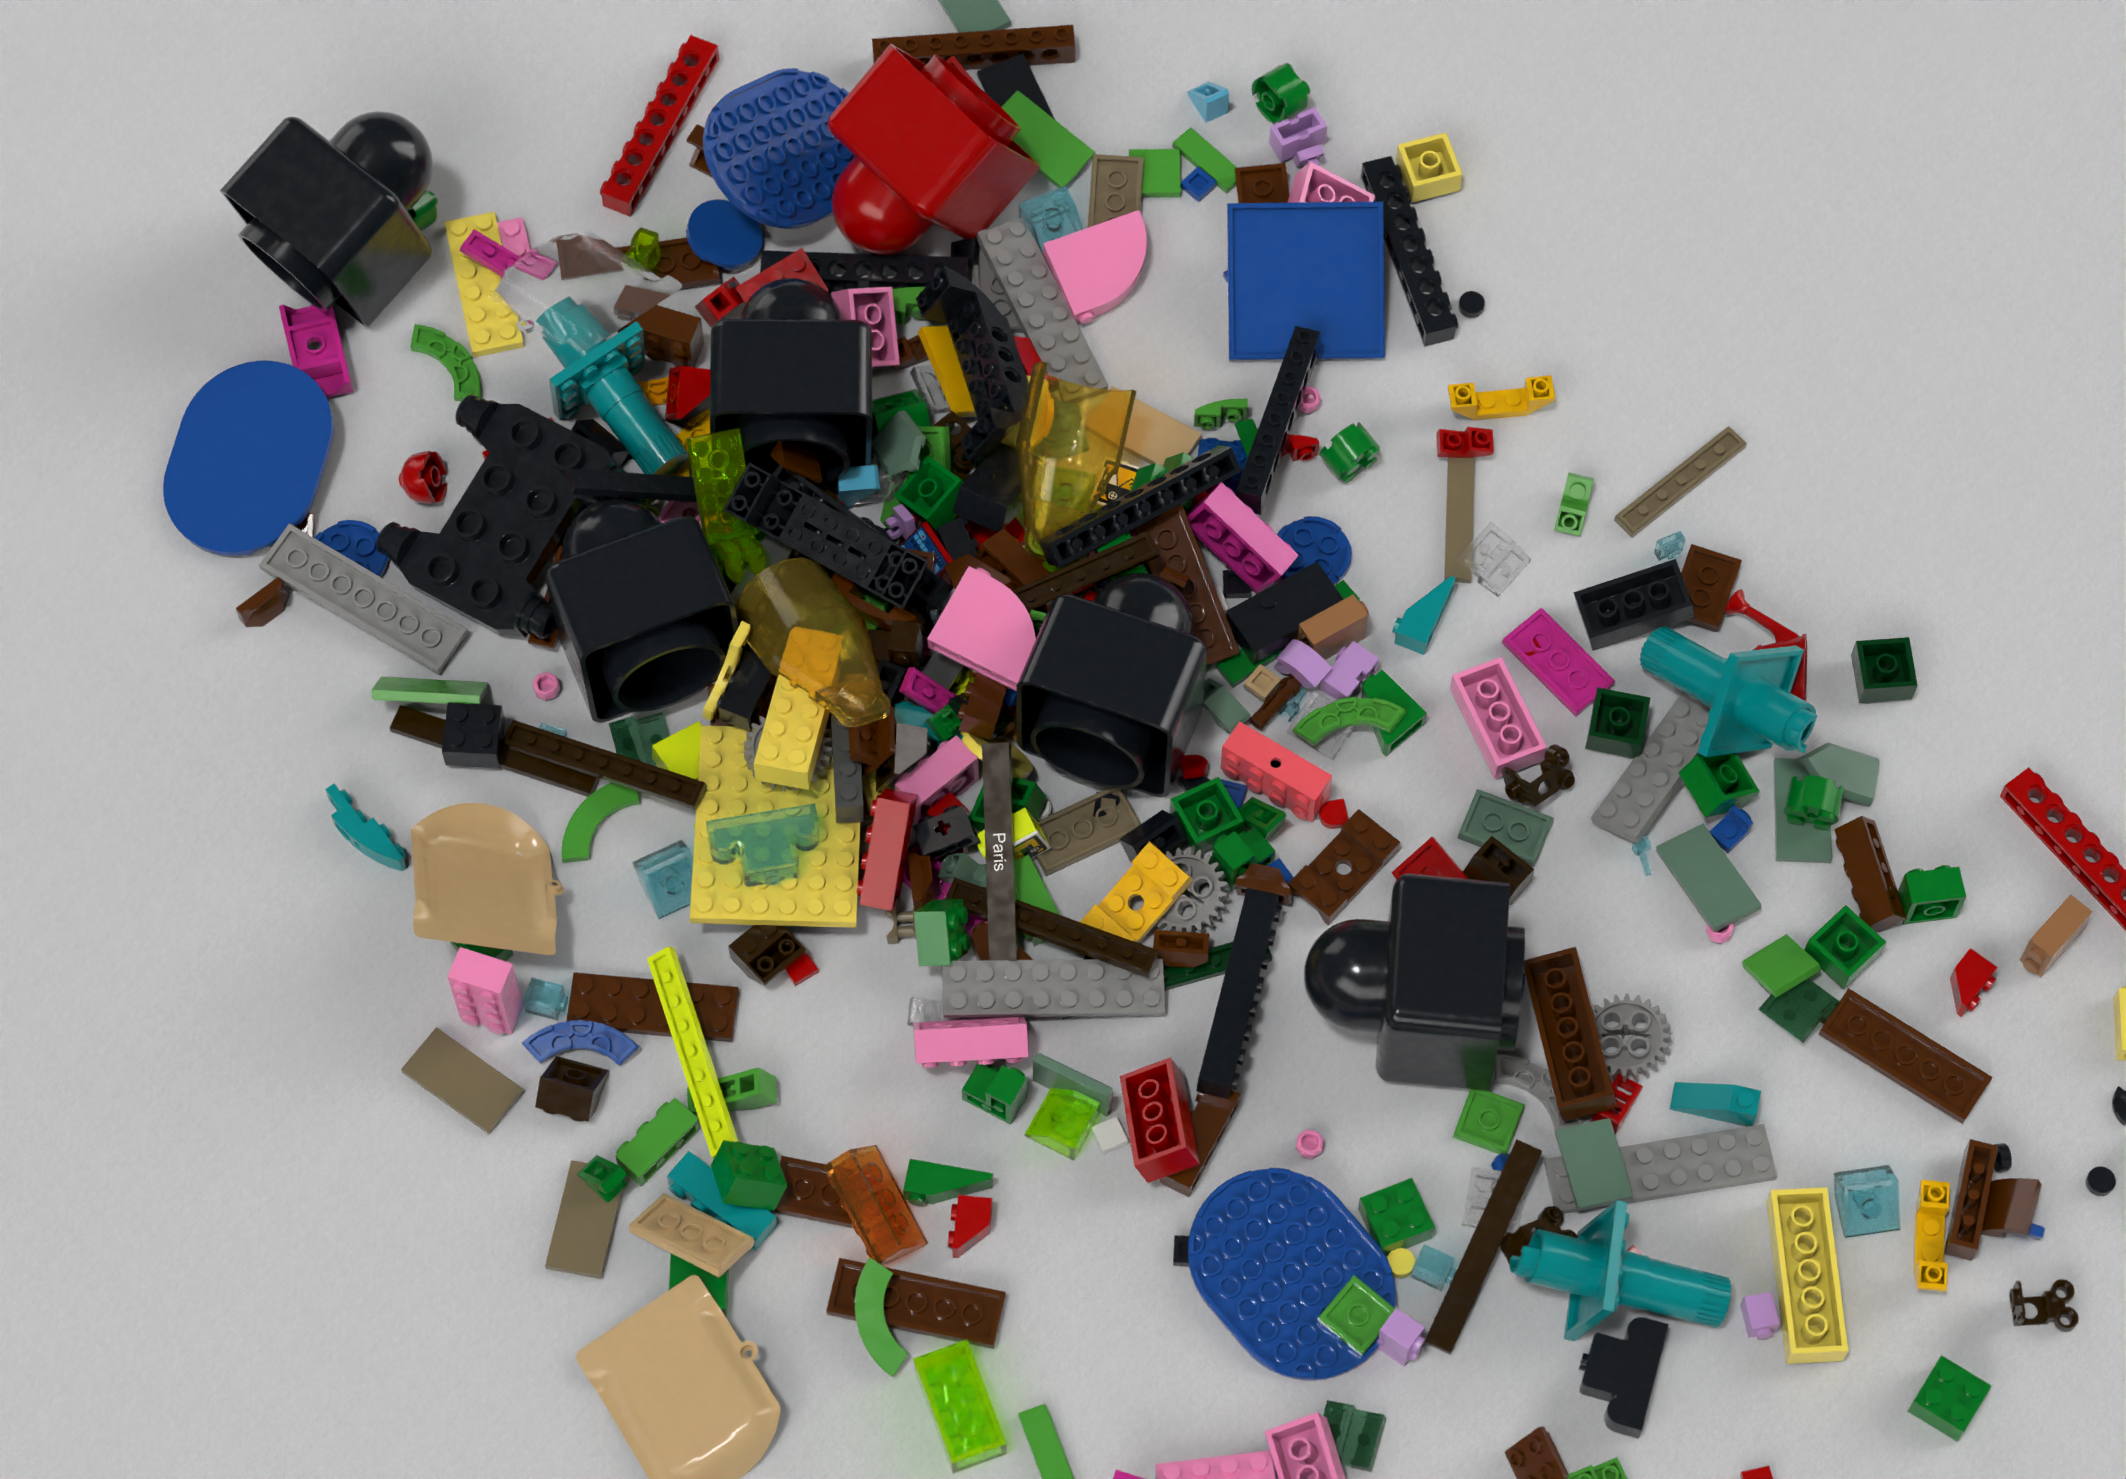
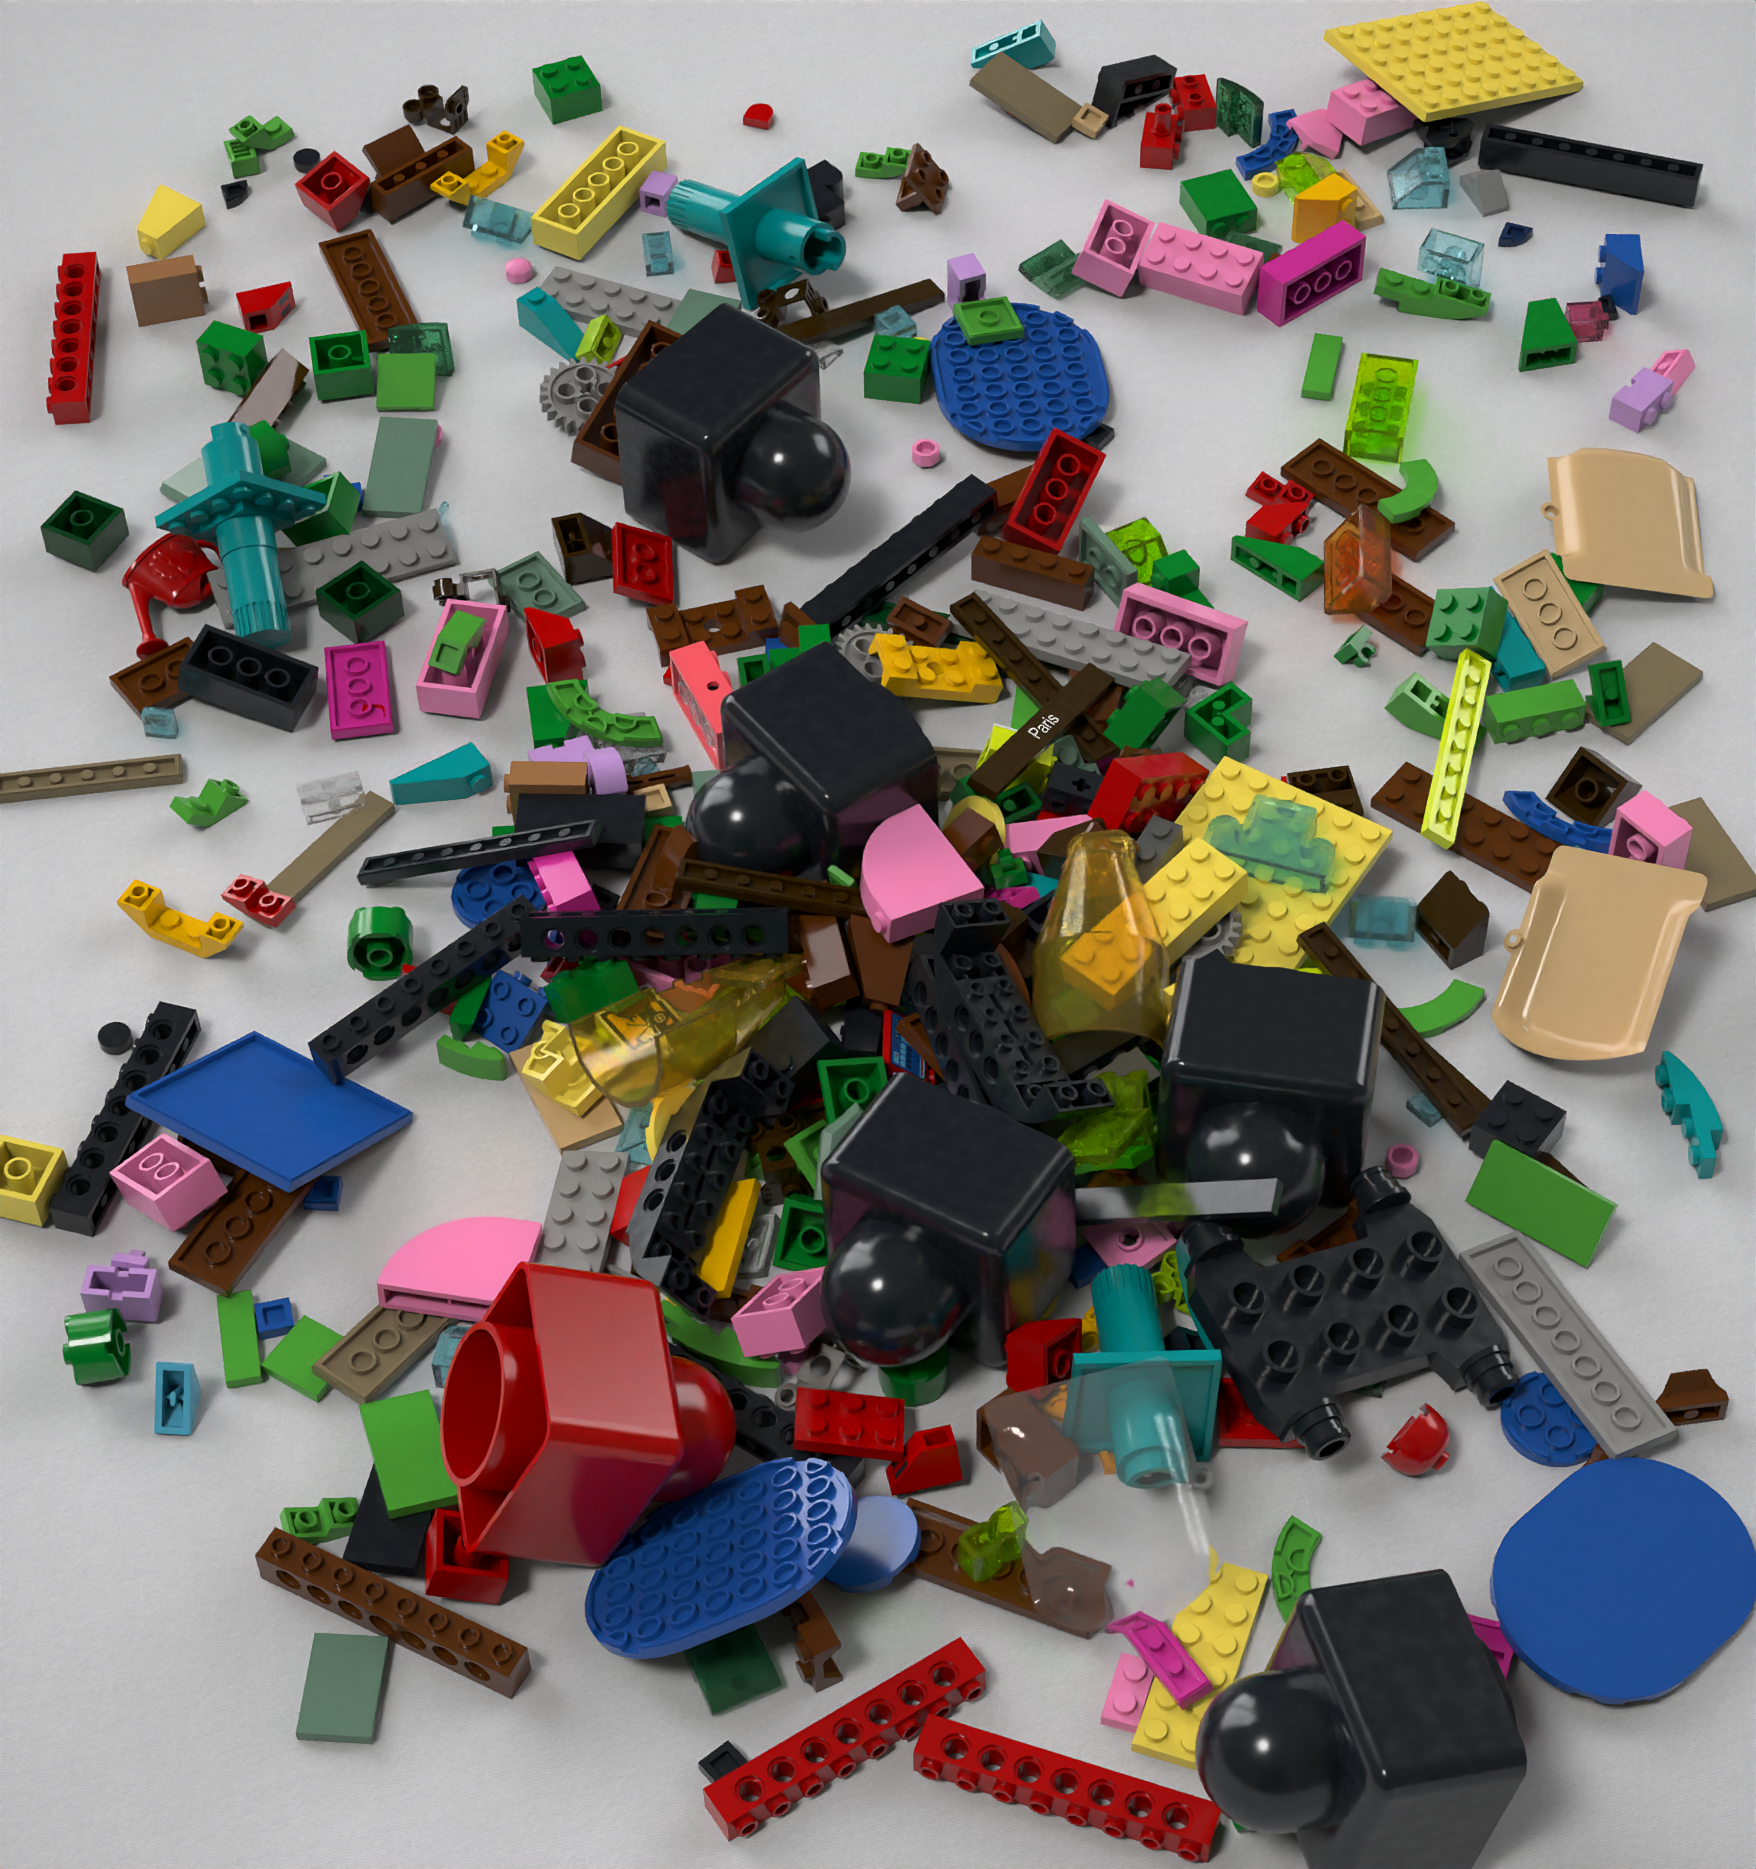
camera: 145 degrees left, 15 degrees down
(529, 168) = (1055, 1771): none -> red brick
(611, 892) = (1452, 921): none -> dark brown slope
(720, 79) = (721, 1762): none -> black tile
(835, 1130) = (1355, 646): none -> green tile
(891, 975) = (1220, 724): none -> green brick
(992, 1271) = (1270, 491): none -> red slope
(1063, 83) = (320, 1524): none -> bright green slope
(1122, 1056) = (1032, 573): none -> reddish brown brick
(1153, 435) = (557, 1071): none -> light yellow slope
(1332, 540) = (480, 852): none -> black tile
(1437, 759) = (554, 645): none -> red slope
(1496, 697) = (454, 641): none -> bright green slope
(1667, 1107) = (599, 340): none -> lime slope
(1702, 1239) = (657, 253): none -> clear light blue brick
(1805, 1157) = (518, 270): none -> bright pink tile
(2028, 1127) = (334, 190): none -> red slope

